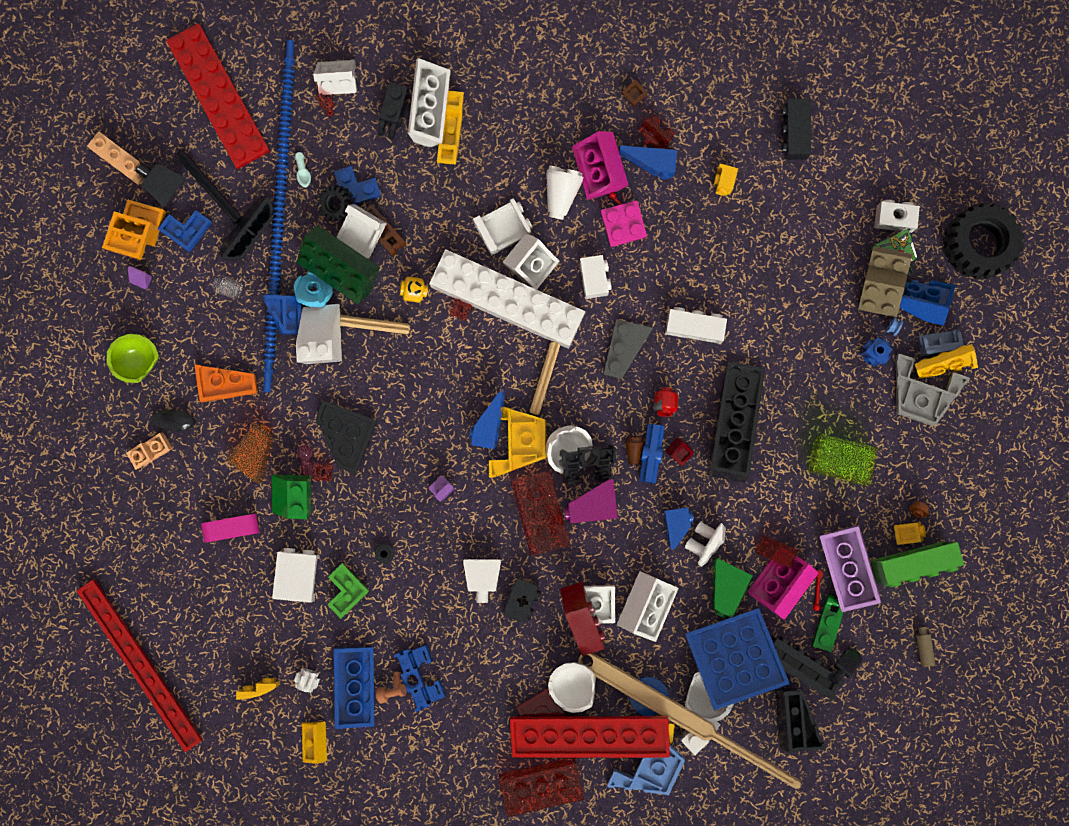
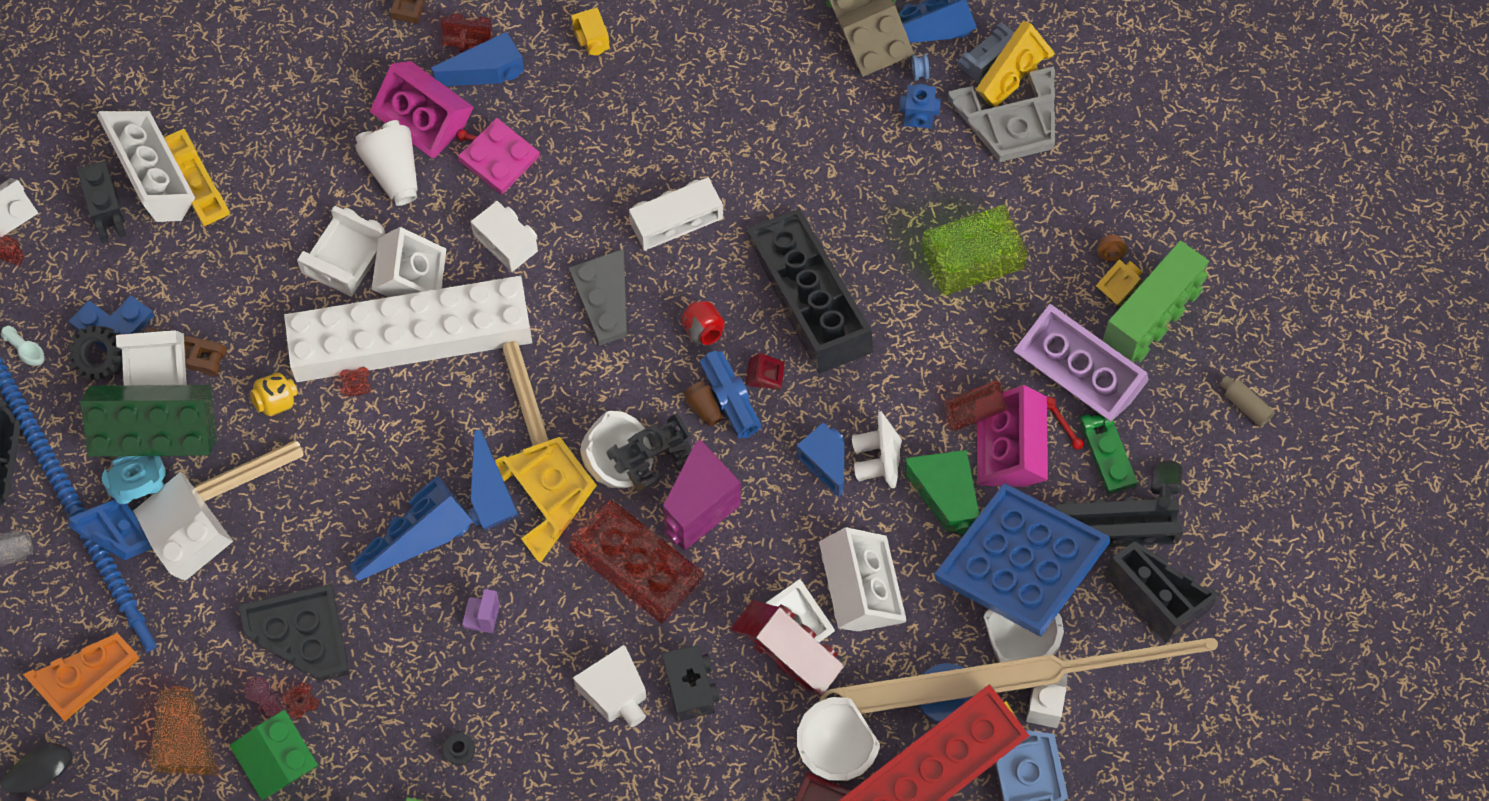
camera: 35 degrees left, 20 degrees down
(444, 420) = (430, 522): none -> blue wedge

